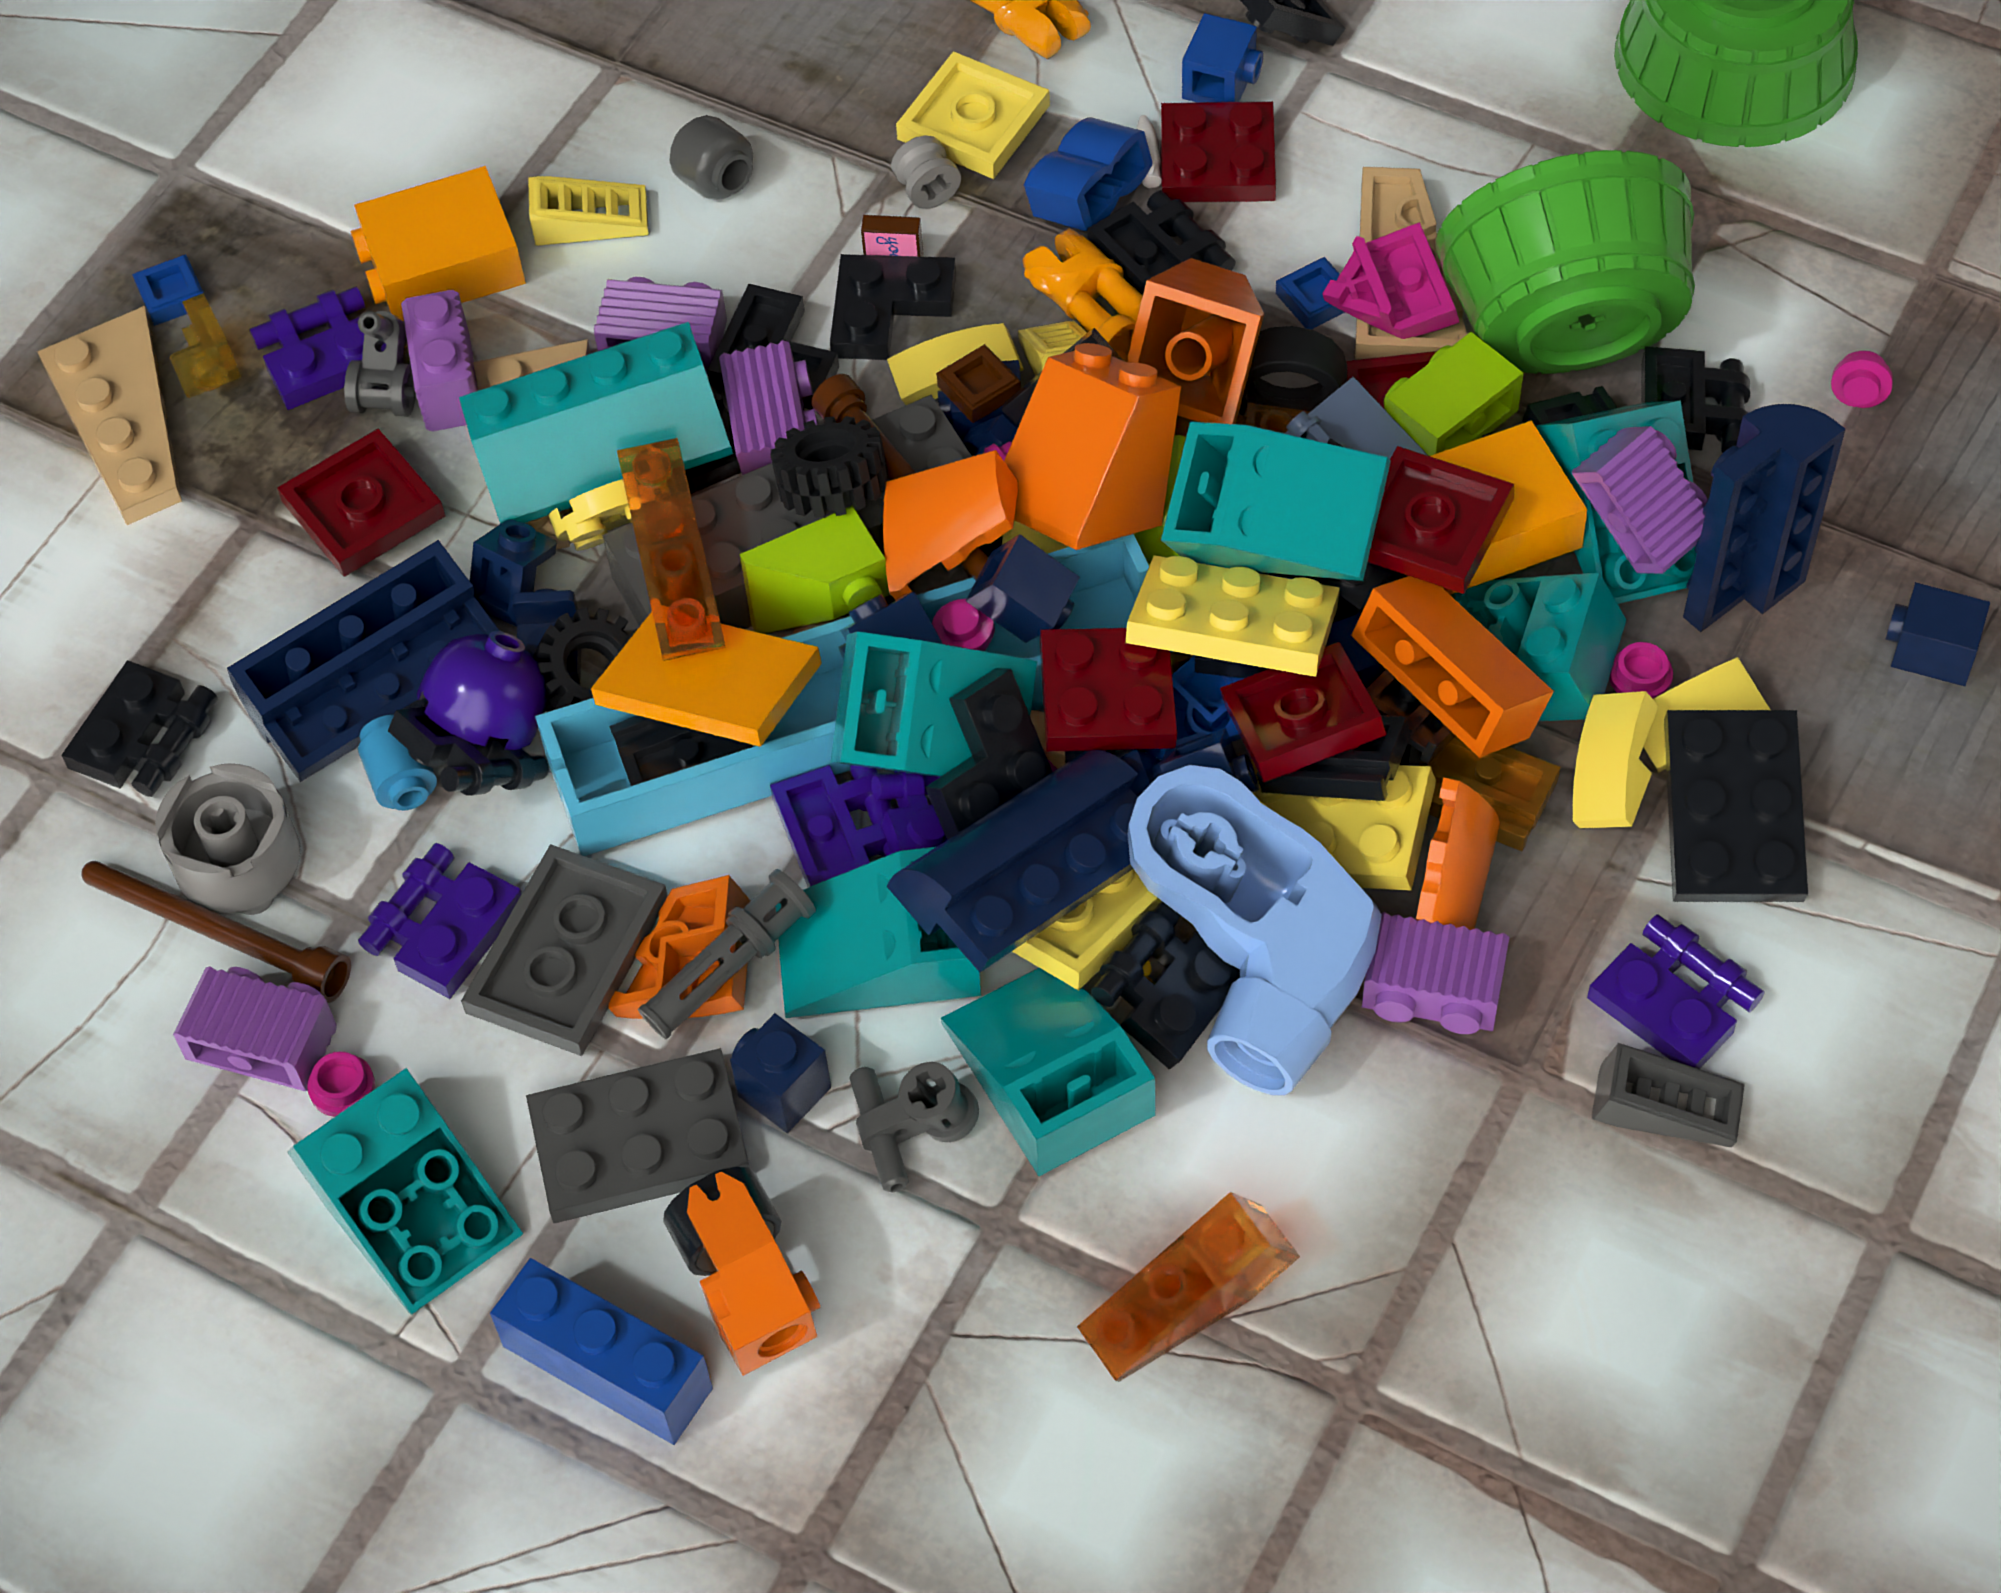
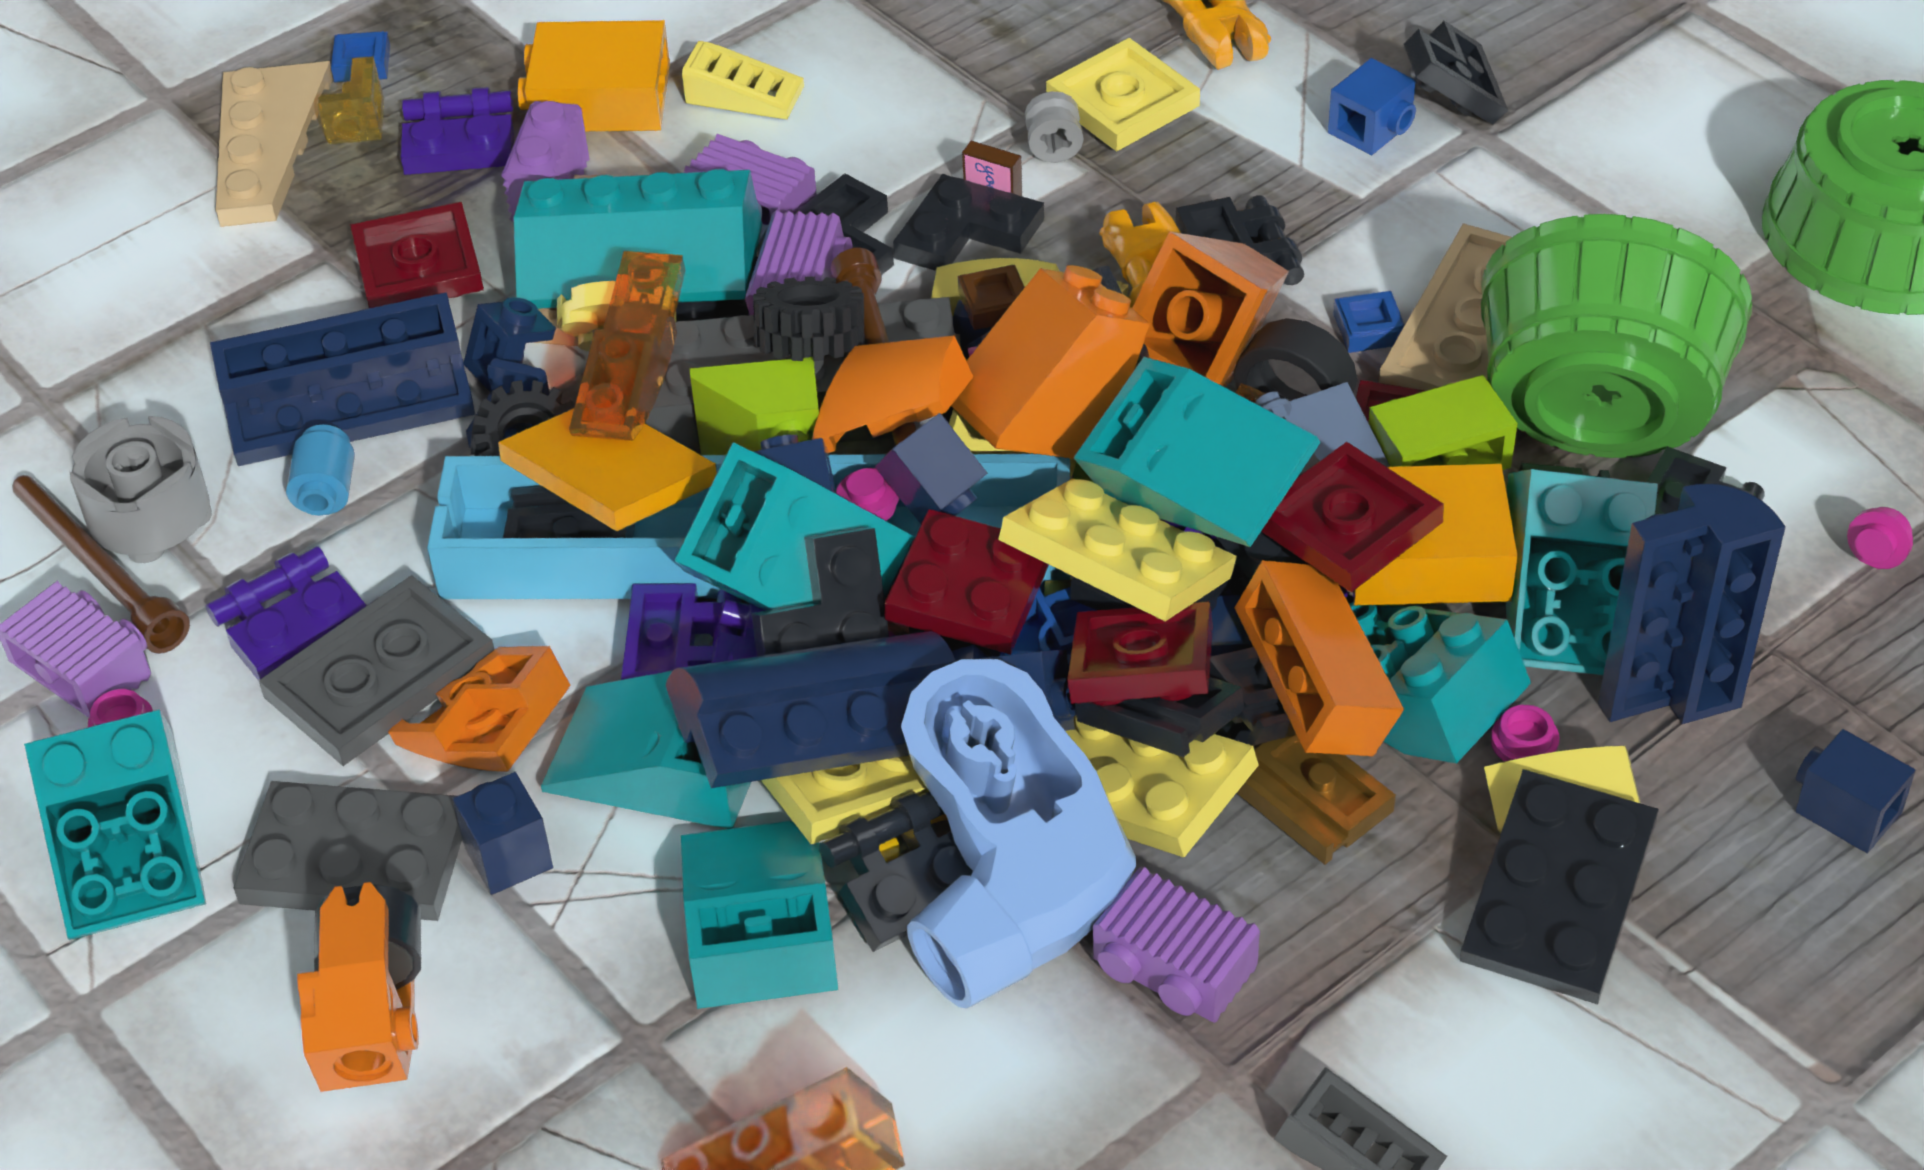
camera: 20 degrees right, 10 degrees down
(127, 720) = (130, 381): black plate -> none
(380, 368) = (489, 152): dark grey piece -> none
(470, 767) = (381, 469): black plate -> none
(485, 689) = (417, 423): dark purple cylinder -> none
(602, 1351) = (205, 1024): blue brick -> none
(711, 157) = (868, 67): dark grey head -> none
(746, 924) = (536, 699): dark grey pin -> none
(913, 1112) = (605, 908): dark grey piece -> none
(1088, 173) = (1200, 163): blue brick -> none
(1153, 178) = (1269, 166): white helmet -> none
(1218, 151) = (1337, 181): dark red plate -> none
(1394, 285) = (1436, 327): dark pink slope -> none
(1458, 857) = (1243, 839): orange slope -> none
(1608, 766) = (1442, 810): light yellow slope -> none
(1644, 498) = (1575, 558): medium lavender brick -> none
(1664, 1008) = (1399, 1058): dark purple plate -> none

